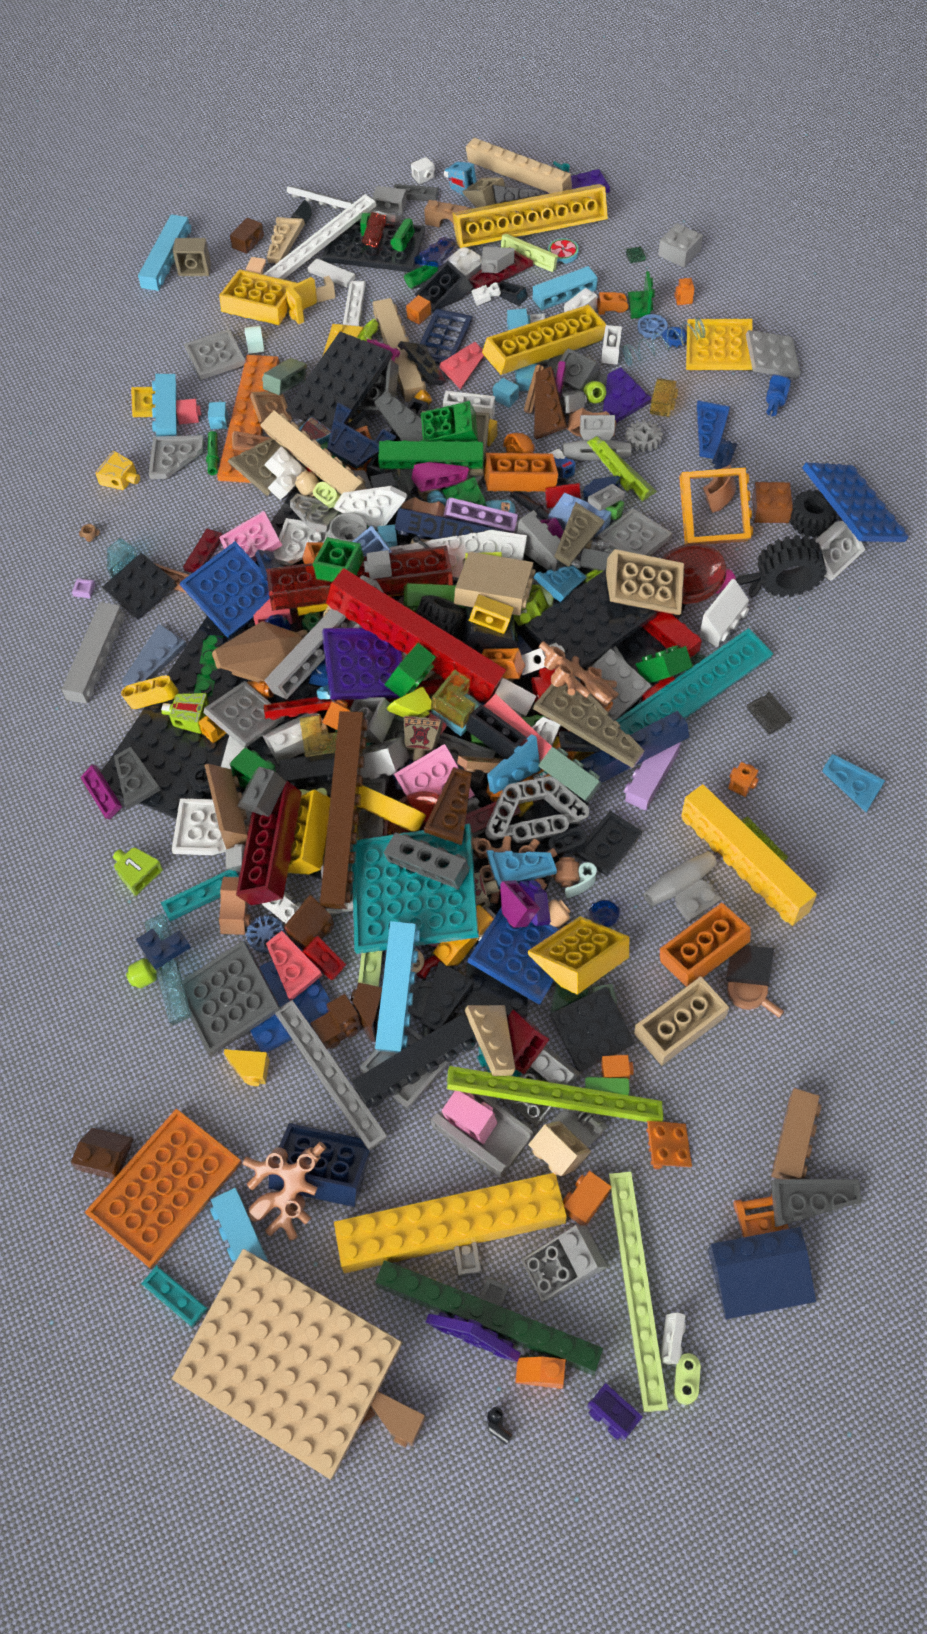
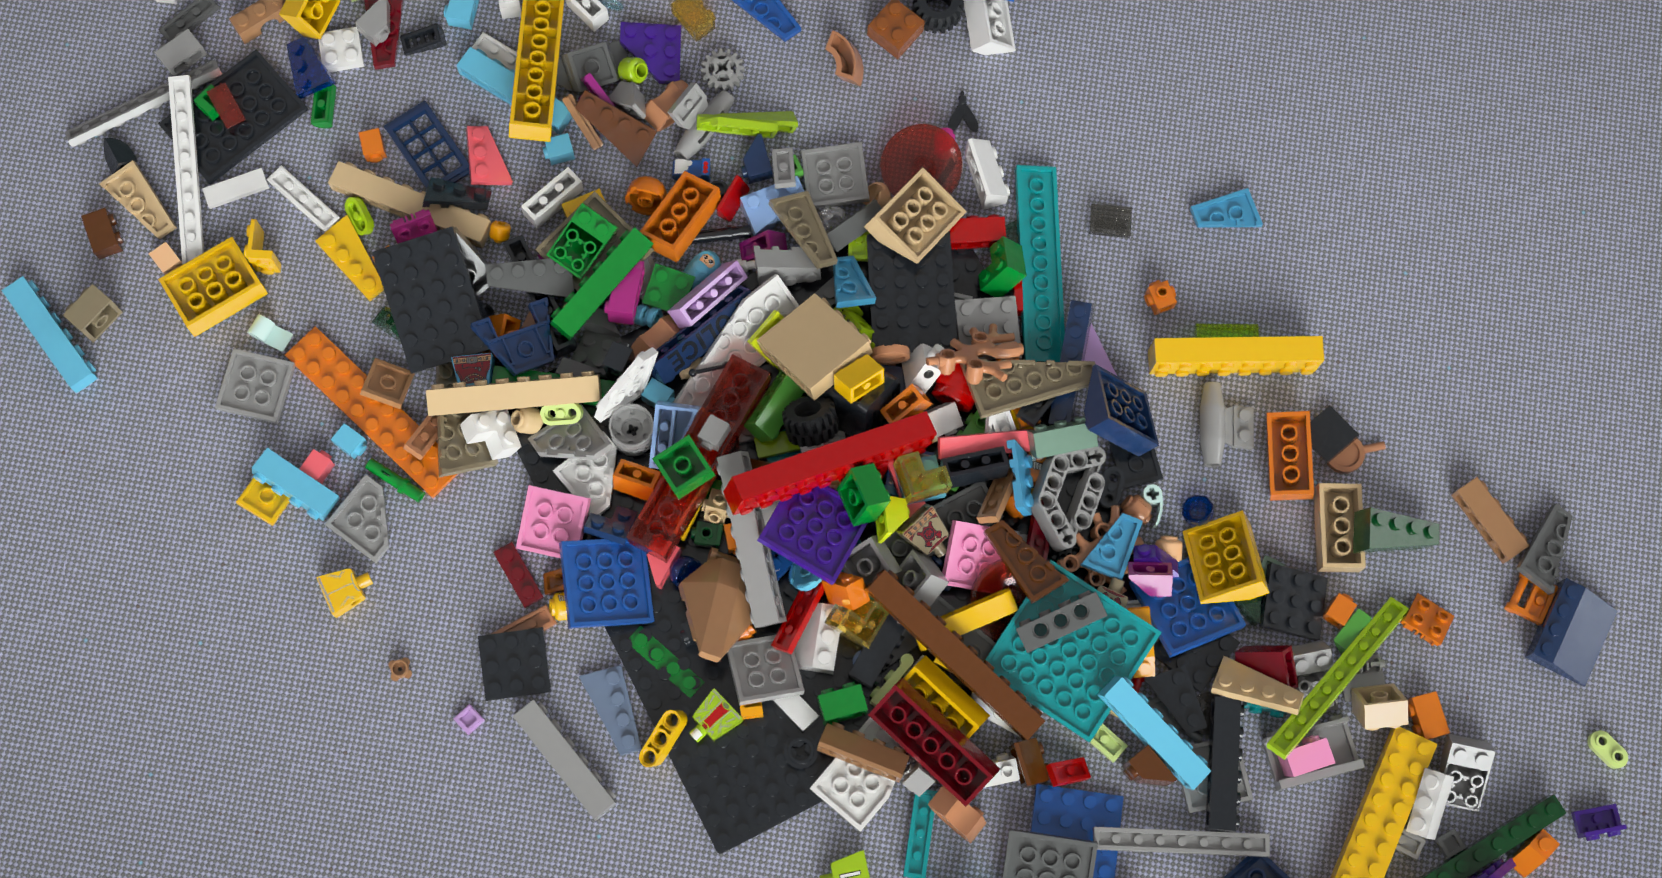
camera: 60 degrees left, 15 degrees up
(101, 792) = (737, 854): magenta tile -> none
(119, 556) = (462, 660): clear light blue slope -> none
(134, 778) = (751, 814): dark grey wing -> none
(262, 792) = (885, 716): dark grey slope -> none
(263, 933) = (1000, 804): medium blue wheel -> none
(284, 376) = (358, 341): sand green brick -> none
(292, 965) = (1058, 804): coral wing -> none
(327, 291) = (260, 211): tan panel -> none
(338, 1023) = (1138, 803): reddish brown brick -> none
(403, 235) = (256, 82): green brick -> none
(445, 287) = (363, 99): black slope -> none
(483, 293) = (404, 67): white plate -> none
(511, 1246) = (1429, 804): none -> white brick
(530, 631) = (890, 354): none -> nougat piece
(623, 795) = (1119, 412): none -> dark blue slope
(638, 1293) = (1521, 733): yellowish green plate -> none
(672, 1337) = (1575, 737): white plate -> none
(687, 507) = (849, 106): light orange window -> none
(710, 1056) = (1390, 531): none -> wedge
(724, 454) = (807, 20): dark blue hips -> none
(787, 554) = (992, 78): black tyre -> none

